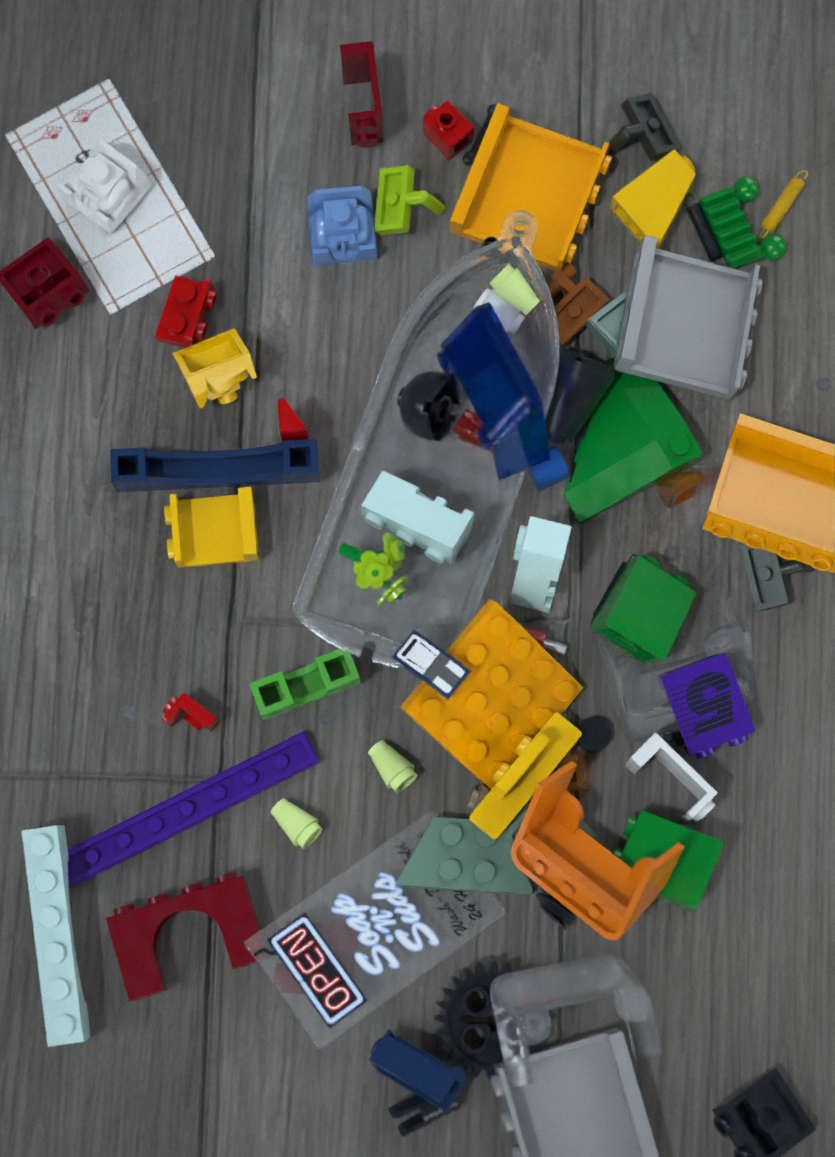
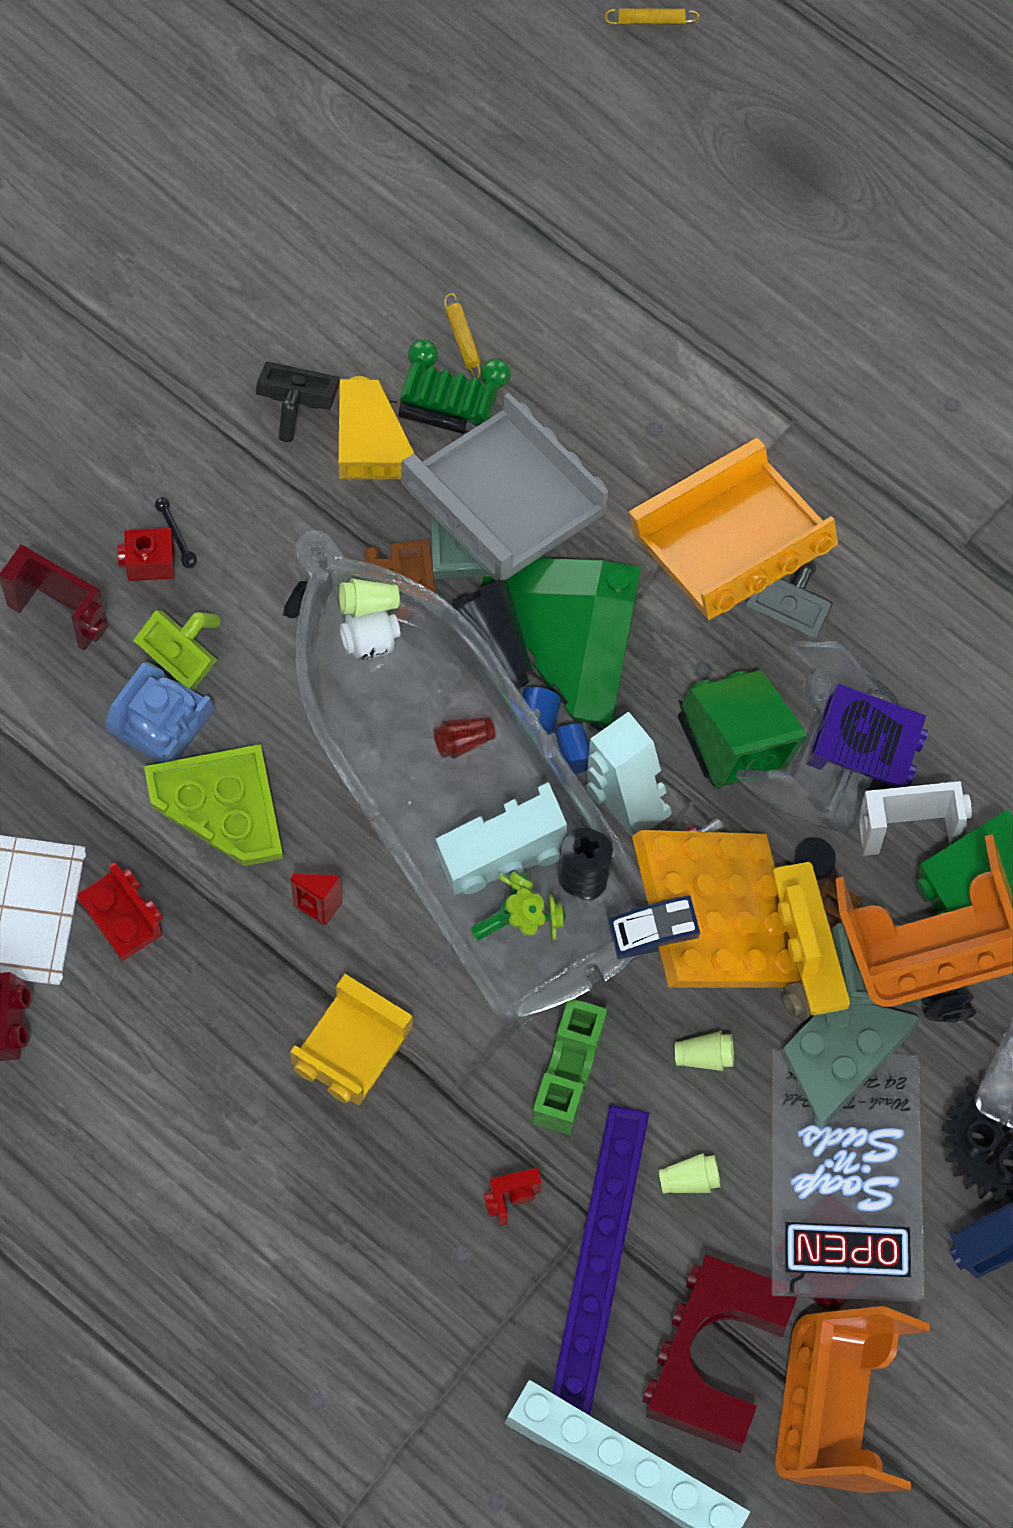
camera: 55 degrees left, 10 degrees down
(168, 470) = (263, 1038): dark blue arch -> none
(206, 1038) = (829, 1397): none -> orange windscreen
(216, 367) = (201, 920): yellow brick -> none
(313, 314) = (221, 801): none -> lime plate
(428, 404) = (403, 757): black cylinder -> none
(440, 569) = (585, 863): none -> black piece
(499, 391) = (452, 667): clear blue windscreen -> none
(534, 173) = (249, 526): light orange panel -> none
(539, 506) = (574, 746): none -> blue brick
(680, 487) = (651, 612): clear orange slope -> none

